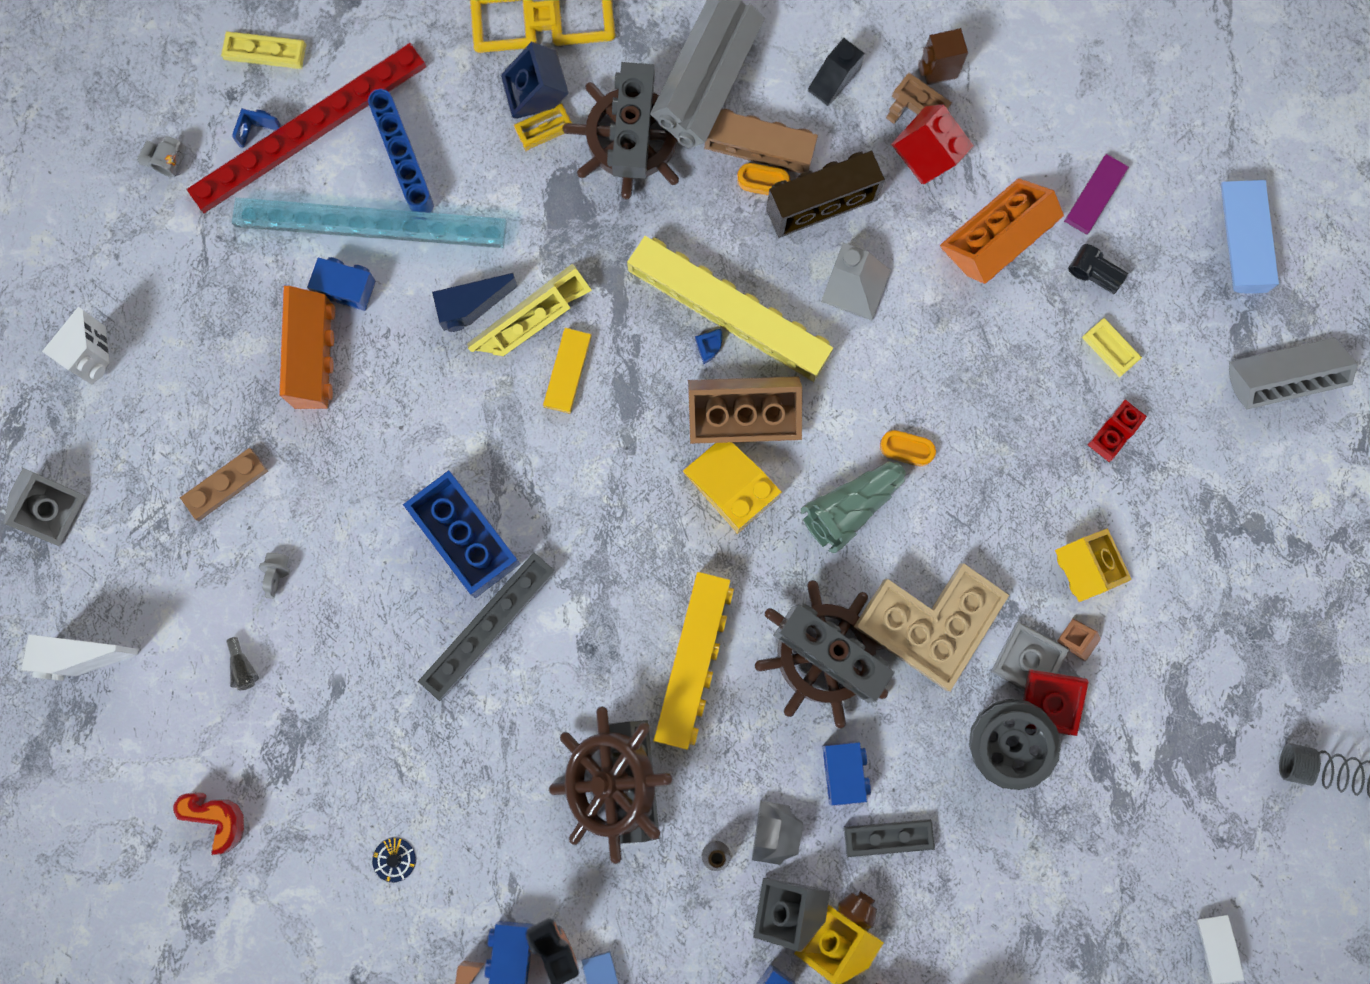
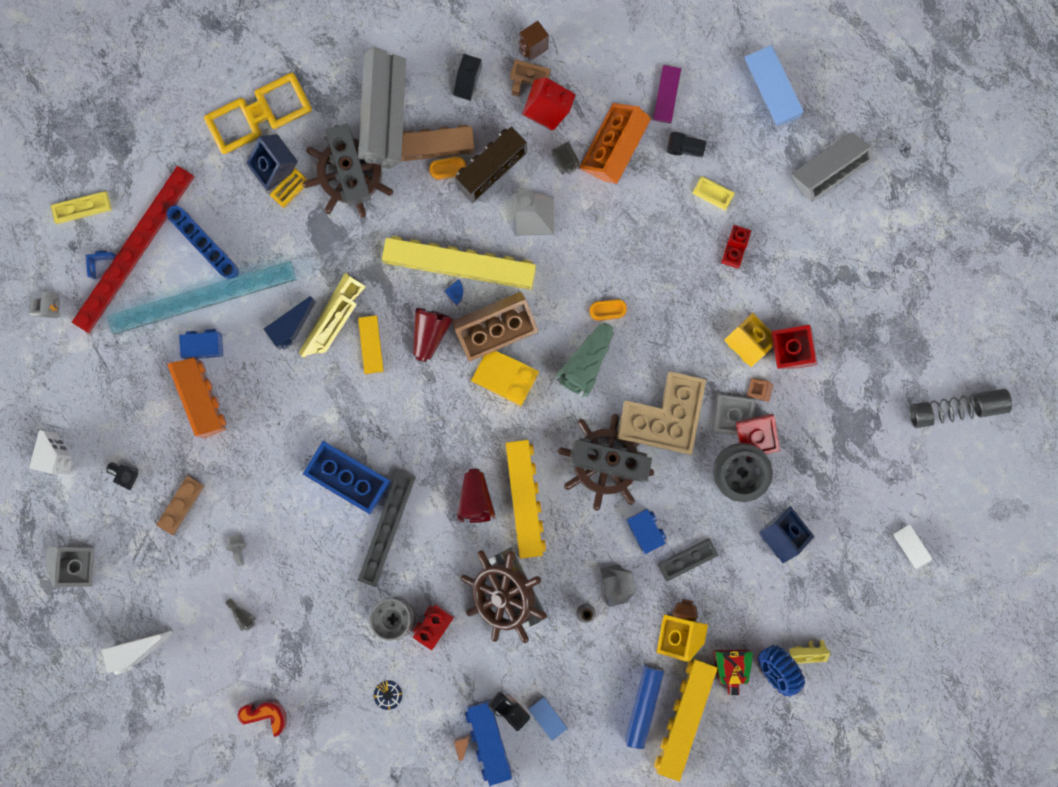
camera: 20 degrees left, 5 degrees up
(165, 412) = (124, 475): none -> black bracket
(426, 750) = (386, 628): none -> light grey wheel
(494, 788) = (433, 626): none -> red brick
(624, 633) = (475, 499): none -> dark red cone
(651, 383) = (428, 332): none -> dark red cone
(790, 913) = (644, 629): dark grey slope -> none
(927, 225) = (565, 158): none -> clear smoke brick
(1043, 859) = (786, 535): none -> dark blue slope
(1151, 599) = (794, 347): none -> red slope

